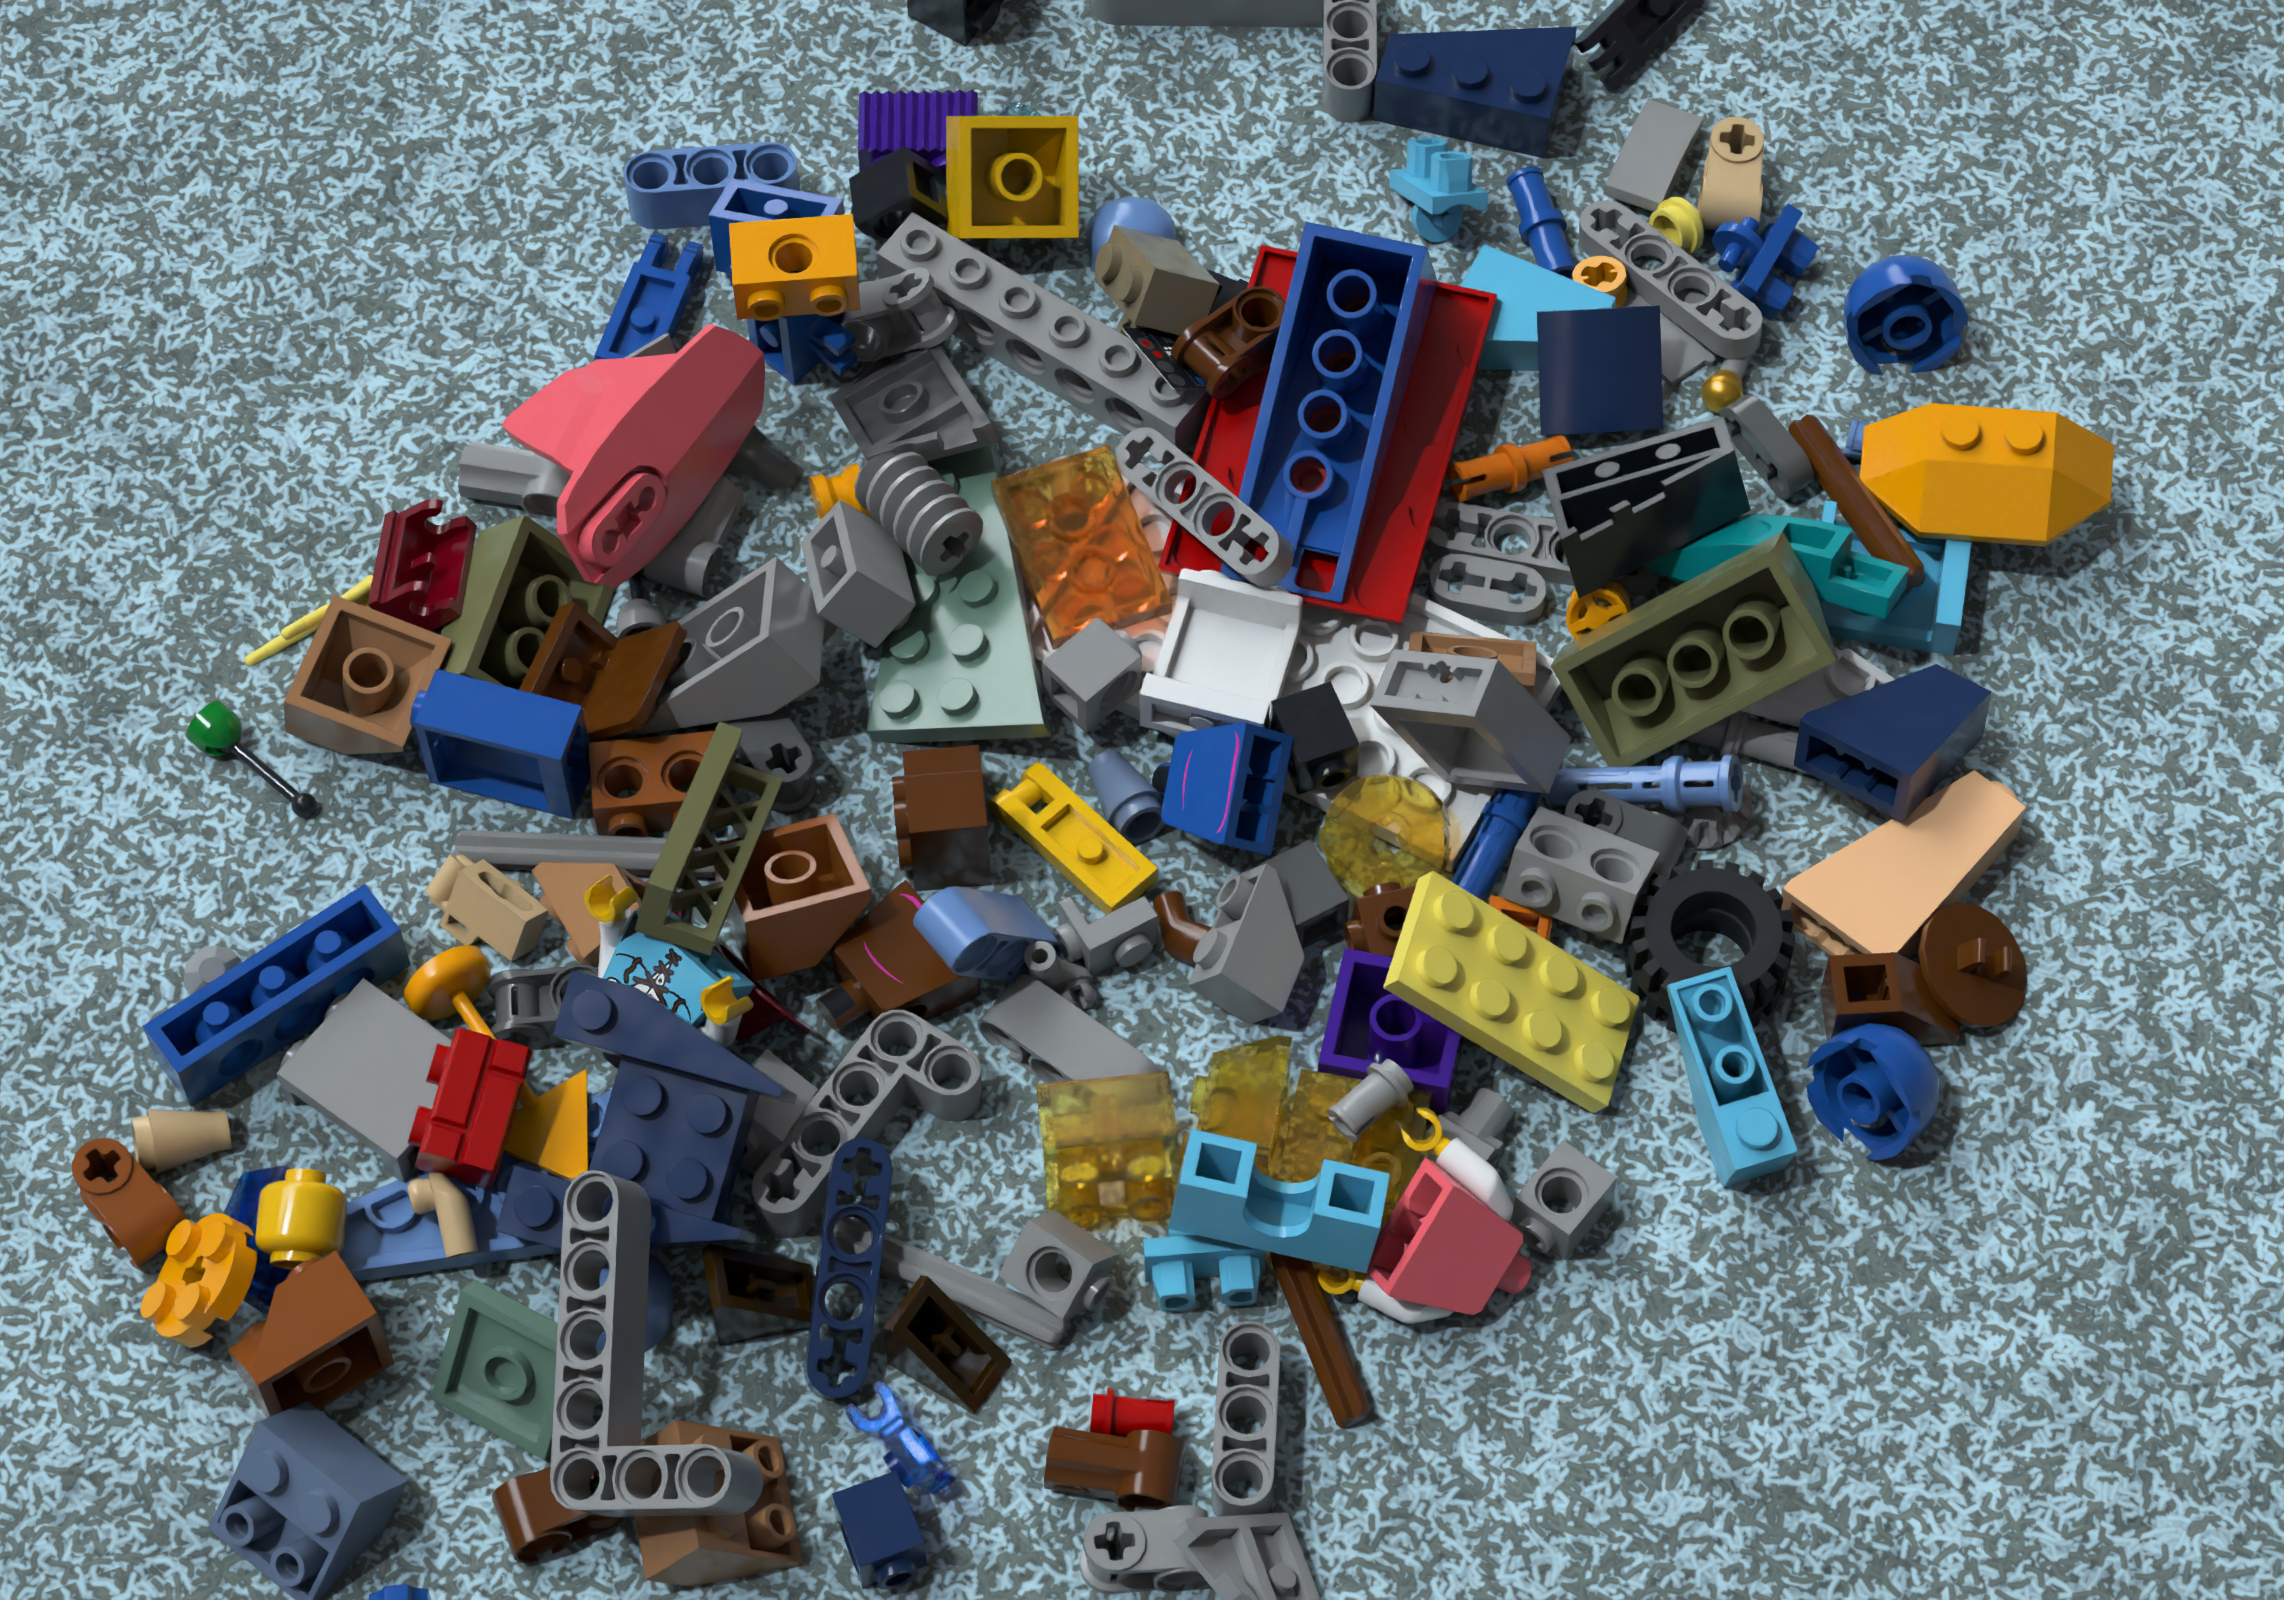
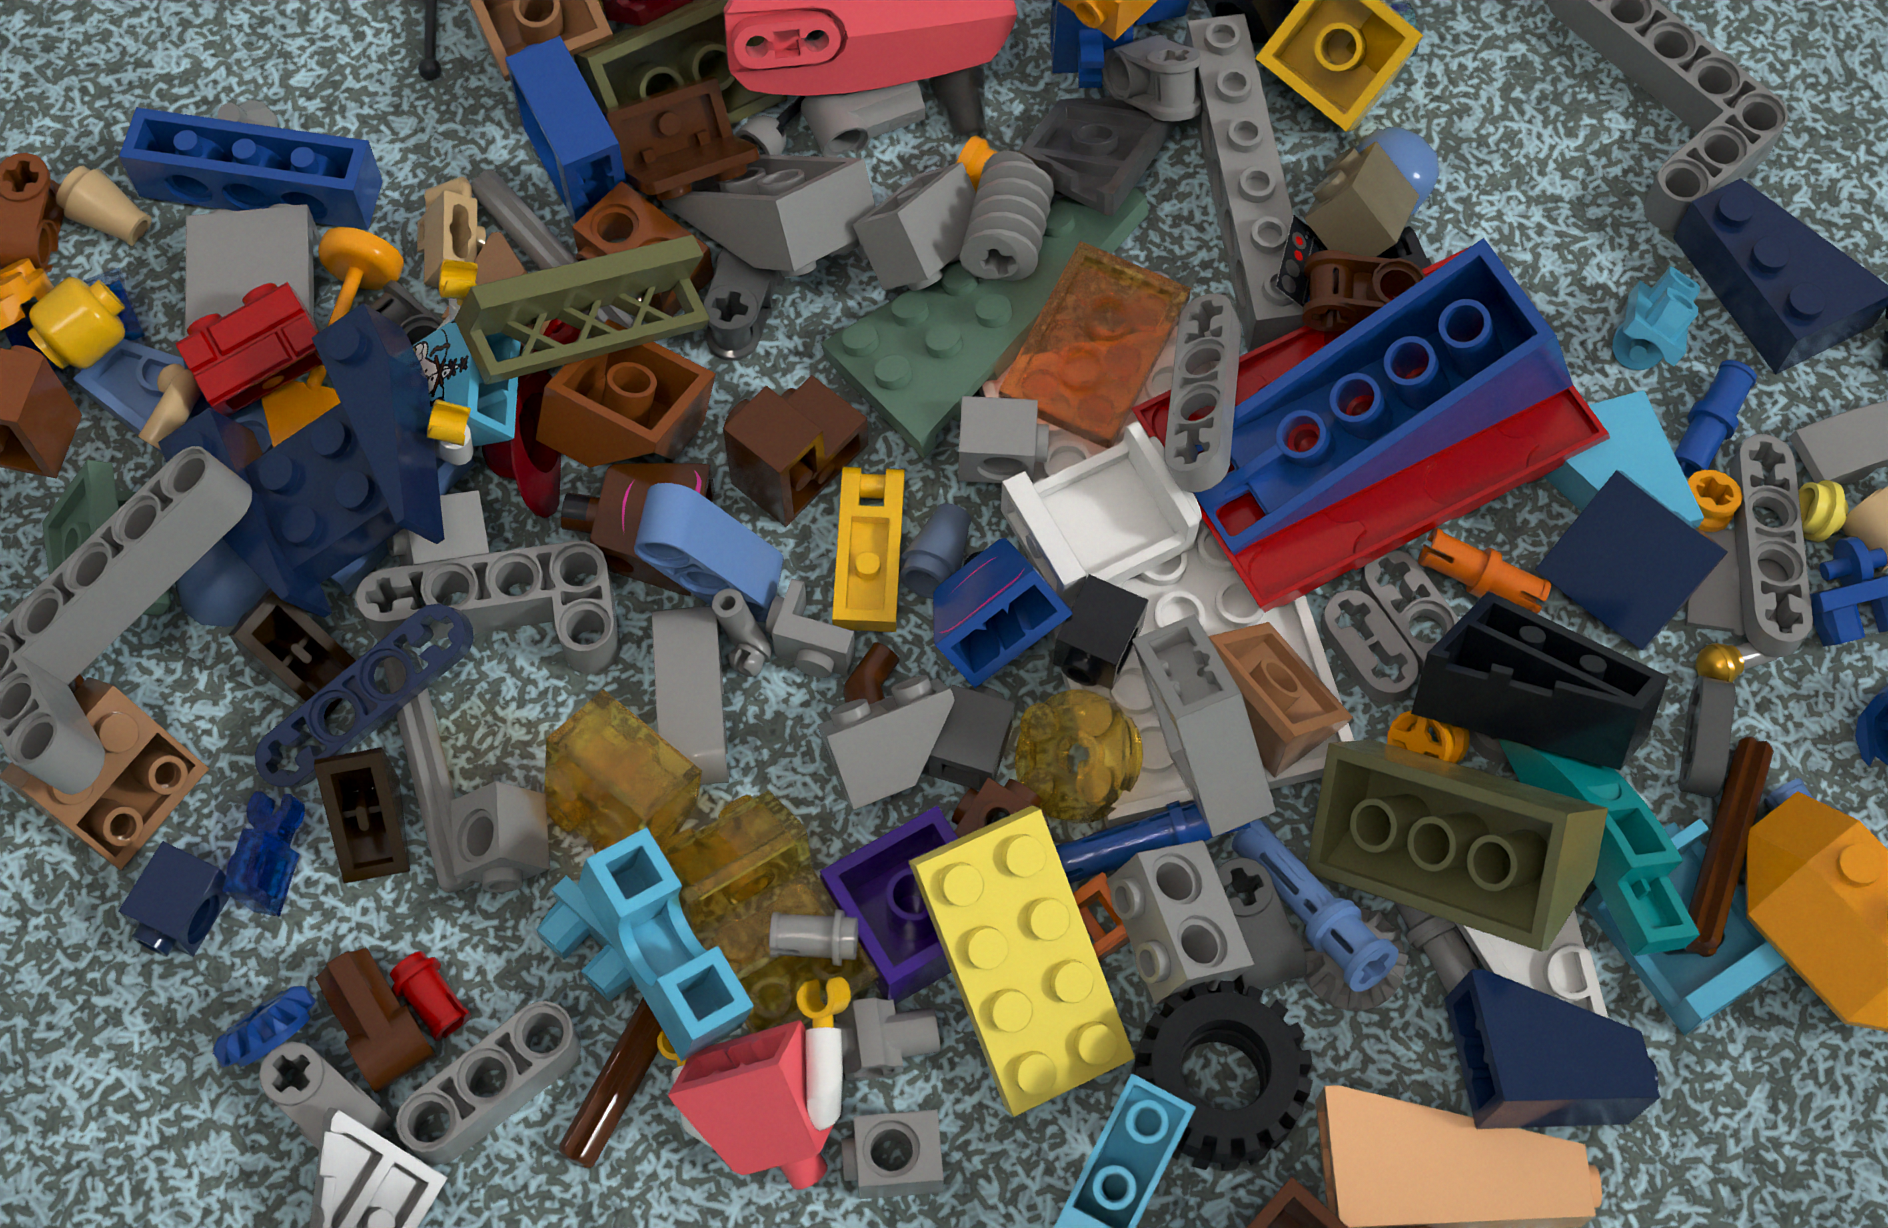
camera: 45 degrees right, 5 degrees up
(1053, 1540) = (264, 1027): none -> blue gear

